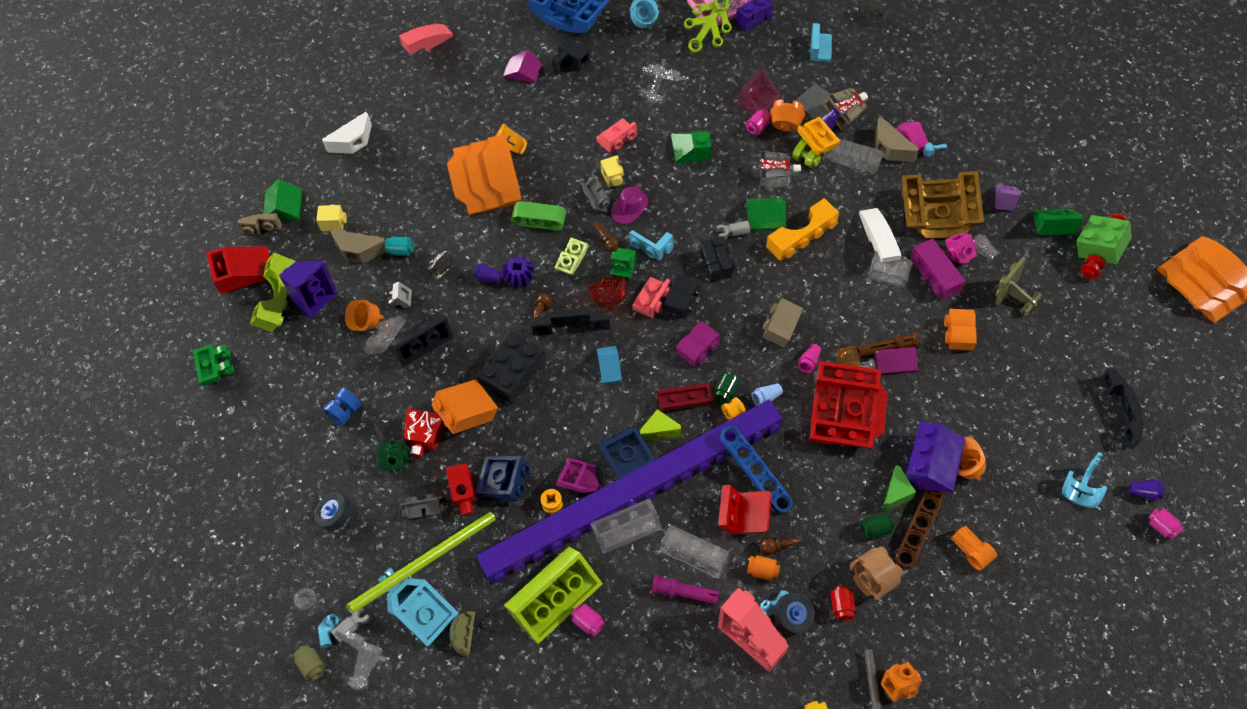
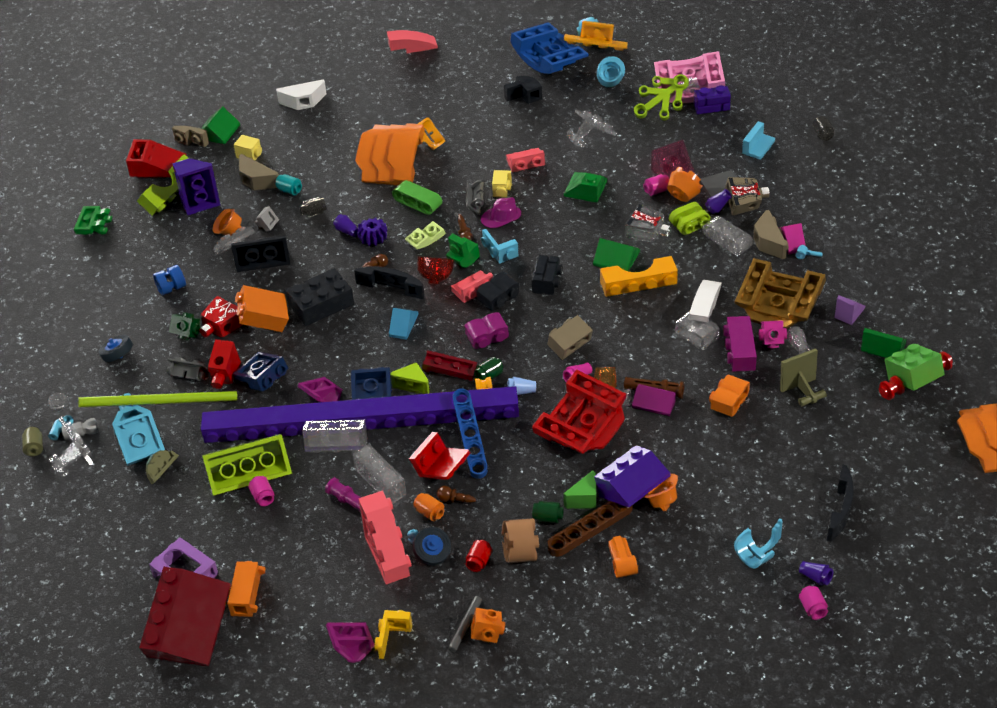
camera: 25 degrees right, 15 degrees down
(523, 67) = (480, 87): magenta slope -> none
(551, 506) = (288, 397): light orange wheel -> none
(734, 229) = (577, 258): light grey bar -> none
(818, 136) = (697, 206): light orange plate -> none

